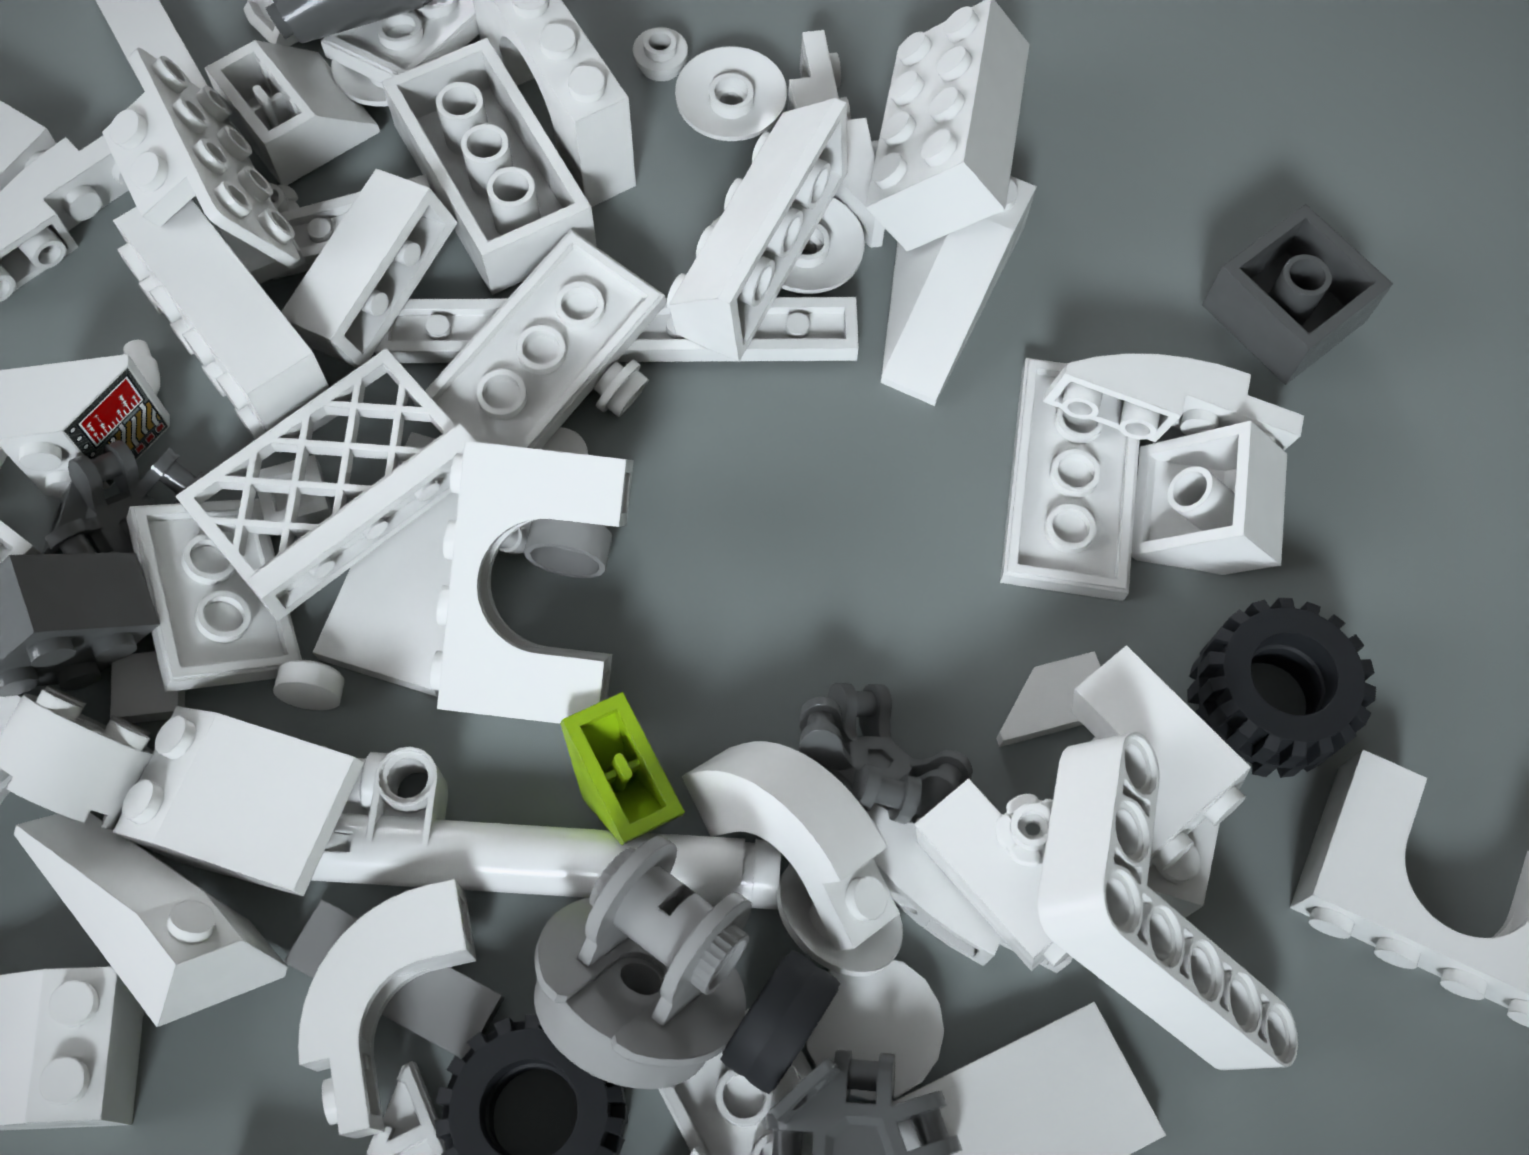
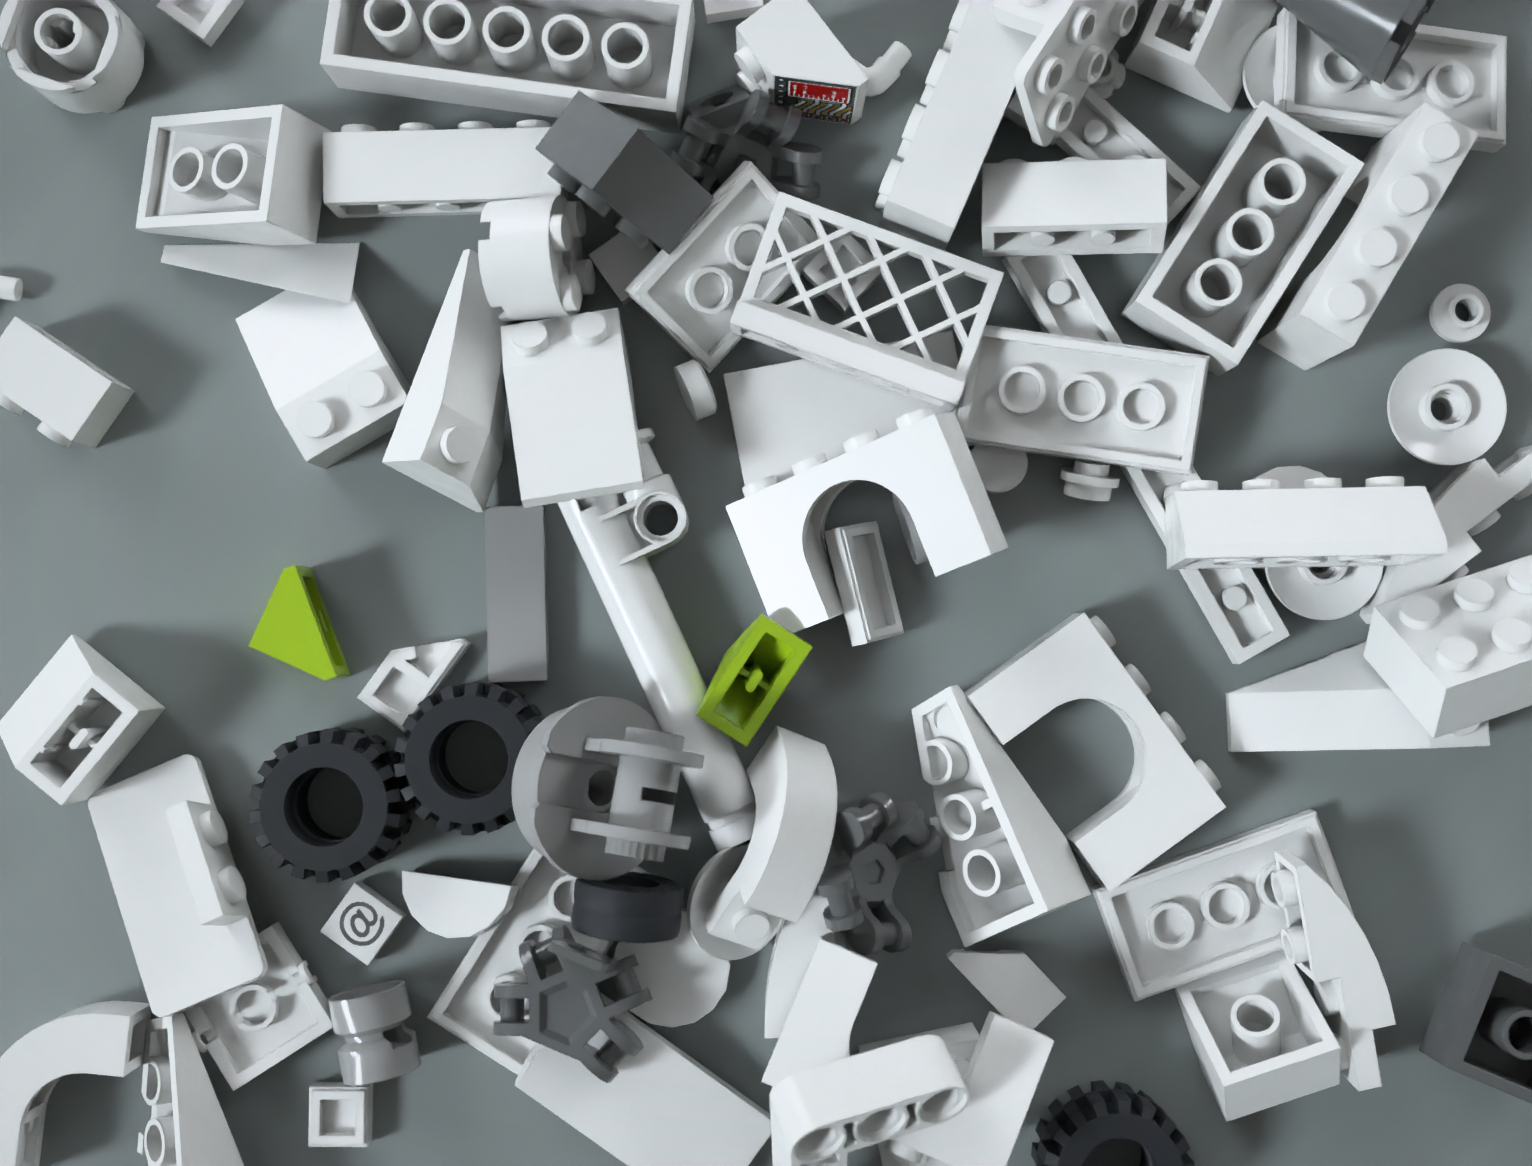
camera: 65 degrees right, 20 degrees up
(358, 978) = (535, 587): white arch -> none
(593, 626) = (864, 583): none -> white tile
(919, 633) = (997, 838): none -> white wedge
(936, 461) = (1166, 790): none -> white arch
(1011, 830) = (851, 1020): white plate -> none

